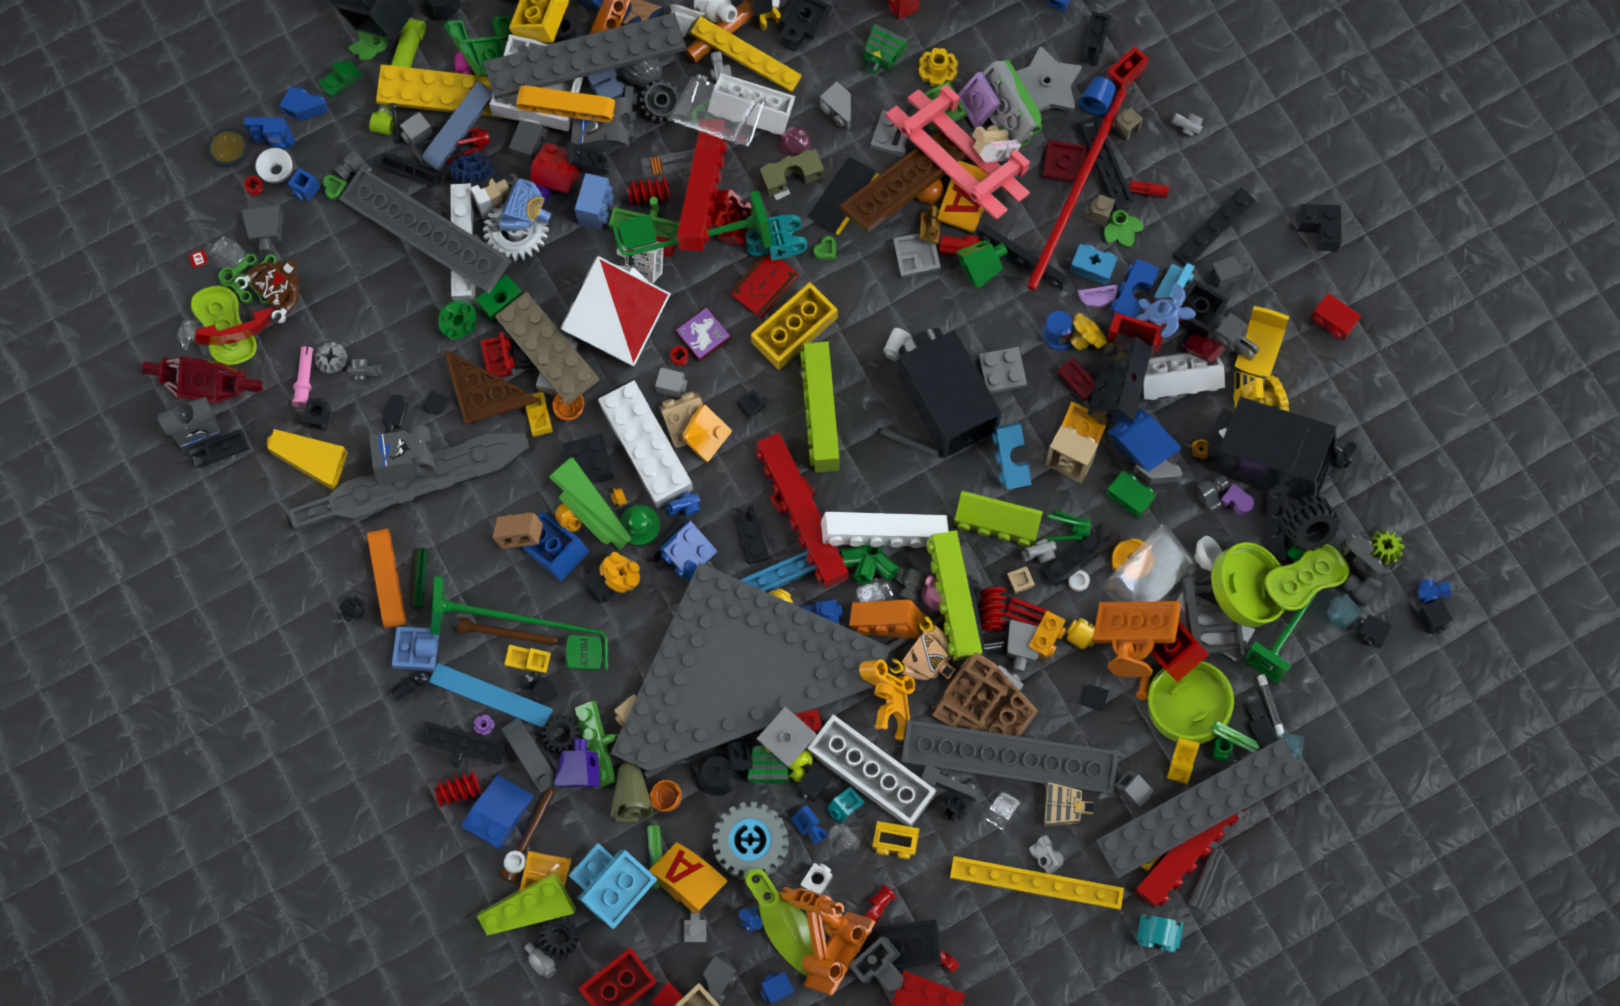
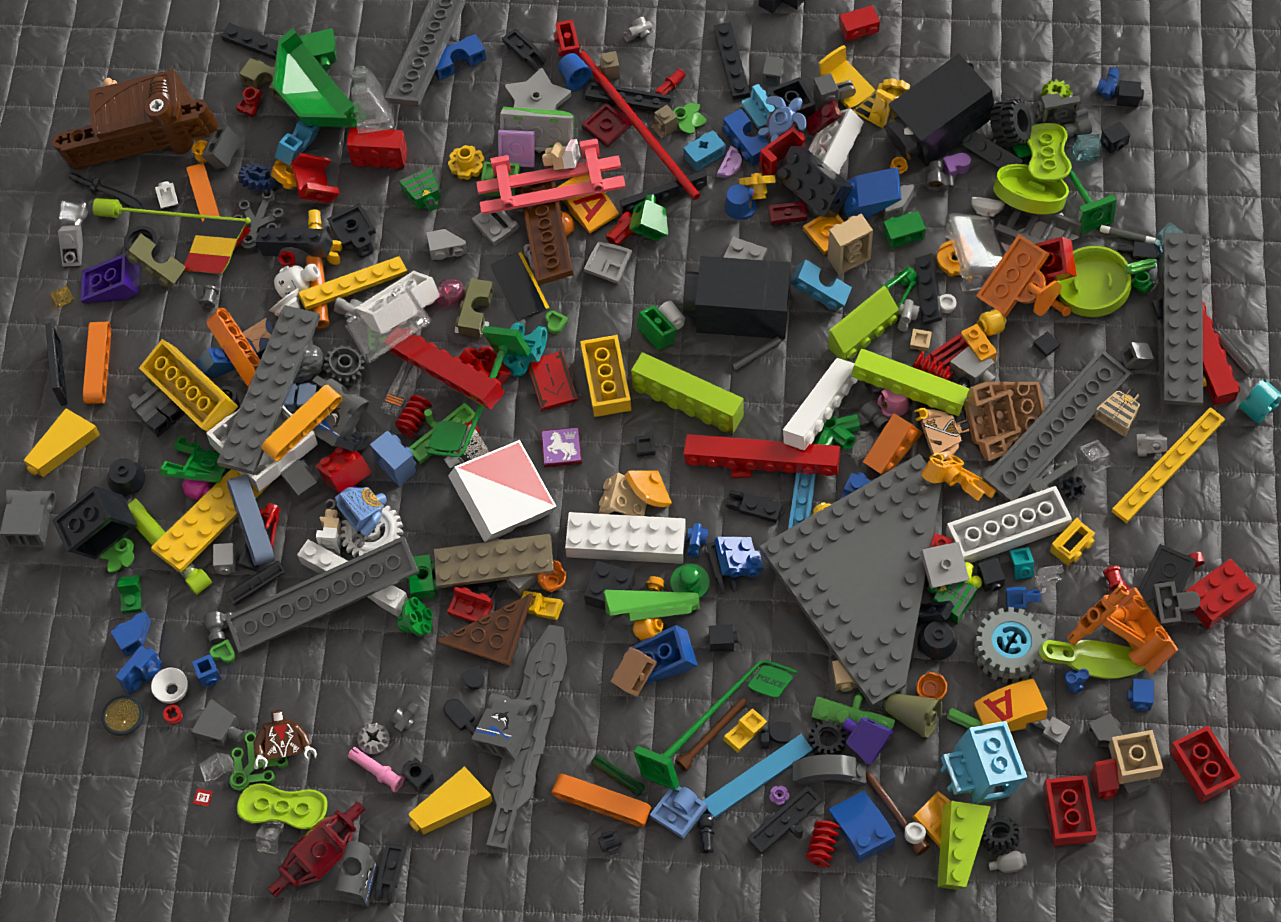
camera: 55 degrees left, 10 degrees down
(210, 335) = (290, 814): red slope -> none
(393, 107) = (193, 560): black hinge -> none
(471, 168) = (292, 533): dark blue gear -> none
(617, 563) = (722, 615): light orange plate -> none
(671, 383) = (586, 491): light grey brick -> none
(683, 360) = (567, 480): red bush -> none
(817, 869) = (1067, 623): white brick -> none
(872, 339) = (656, 327): none -> green brick
(929, 225) = (592, 237): pearl gold hinge -> none
(1183, 760) = (1134, 312): yellow slope -> none

